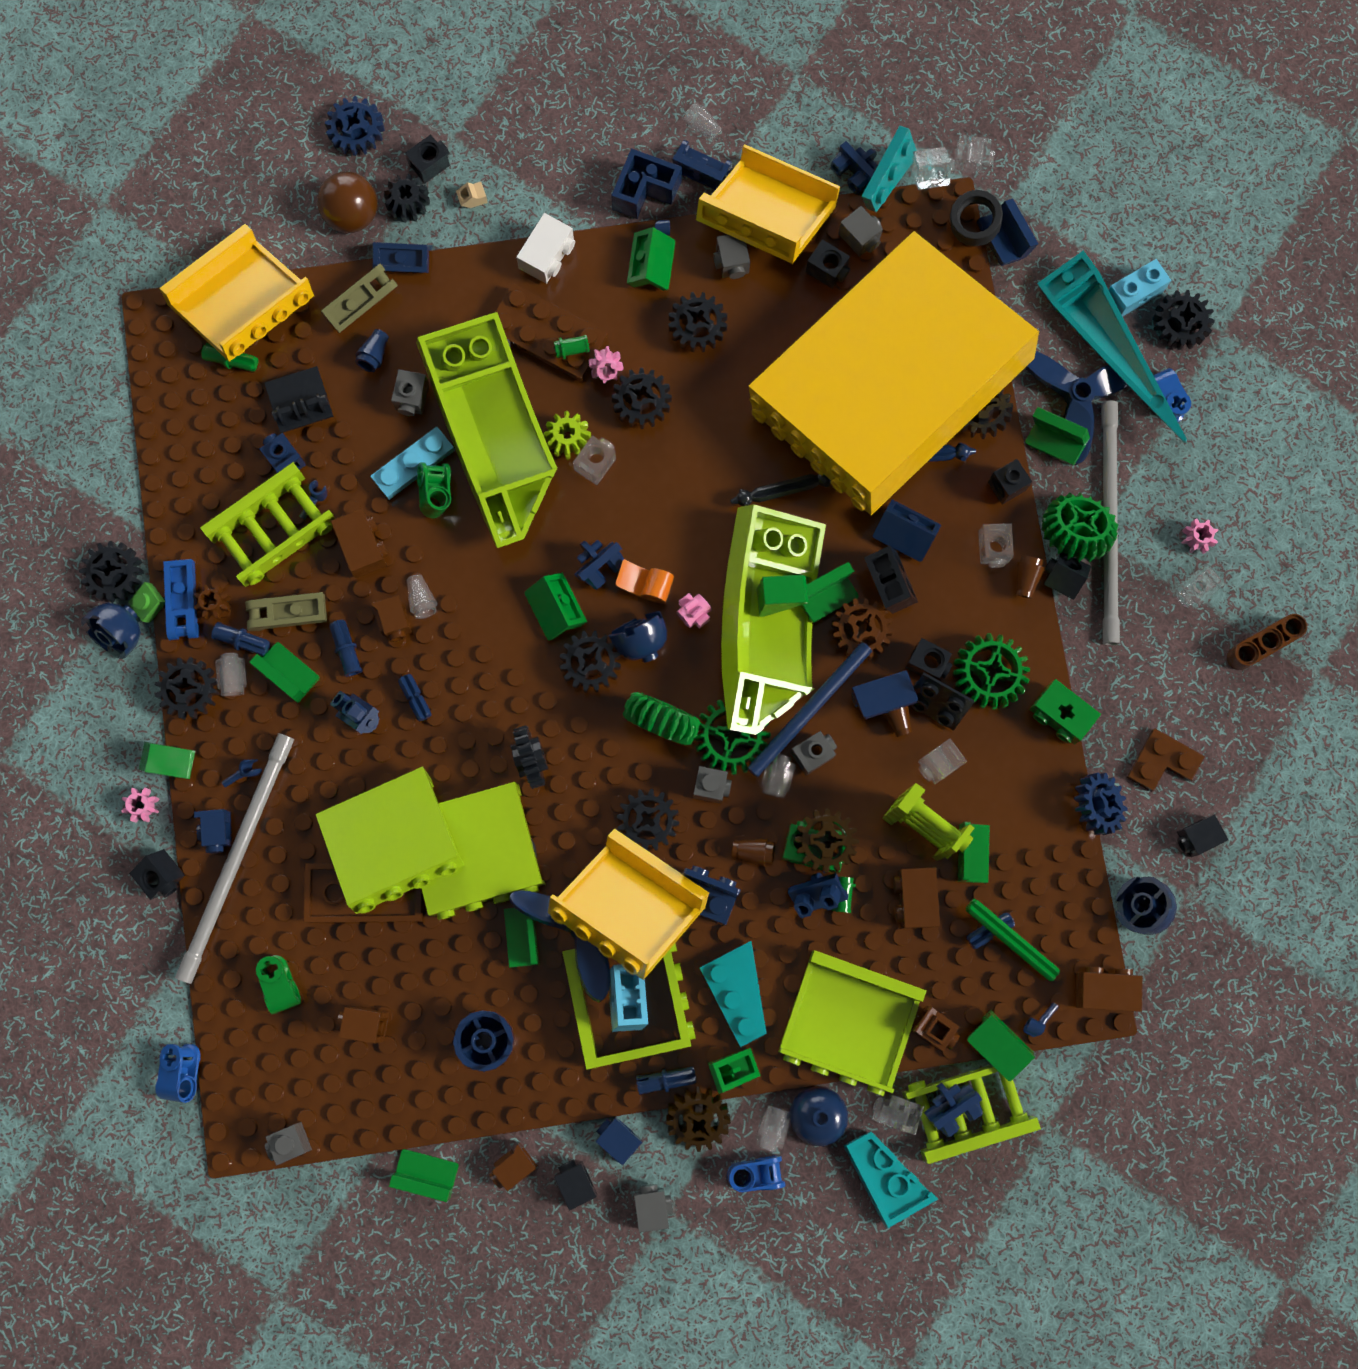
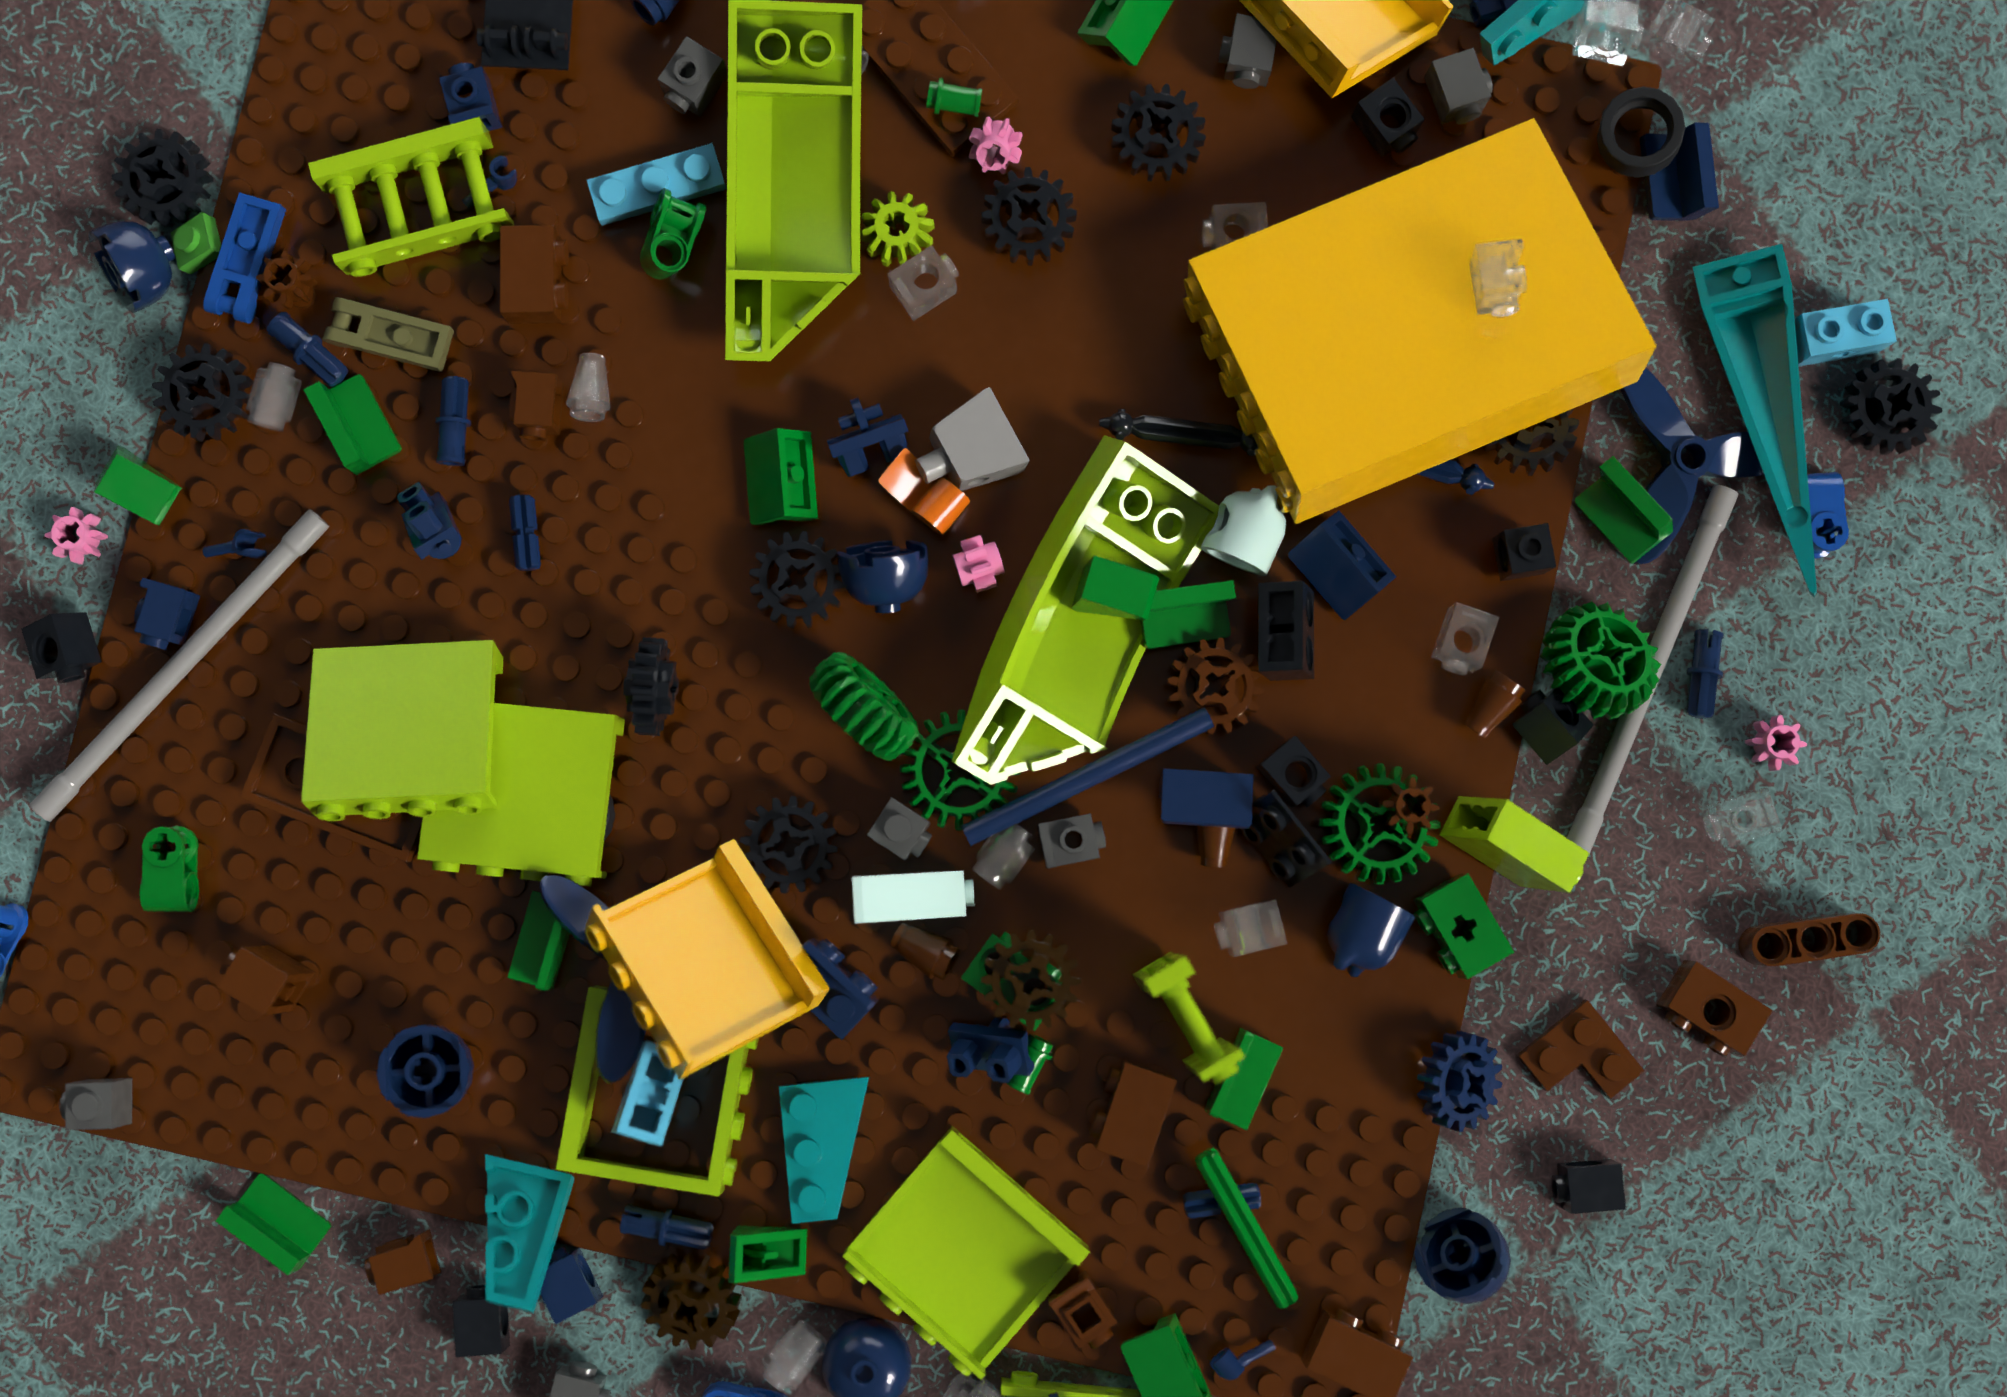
camera: 20 degrees right, 5 degrees up
(578, 1111) = (523, 1223): none -> teal wing
(663, 542) = (974, 445): none -> light grey torso
(734, 821) = (911, 896): none -> light aqua slope
(771, 350) = (1249, 216): none -> clear brick
(844, 530) = (1247, 530): none -> light aqua piece
(932, 326) = (1498, 277): none -> clear brick
(998, 651) = (1422, 808): none -> reddish brown gear
(1010, 735) = (1366, 931): none -> dark blue piece
(1075, 651) = (1515, 844): none -> lime brick
(1142, 512) = (1704, 674): none -> dark blue axle
(1245, 702) = (1738, 1017): none -> reddish brown brick

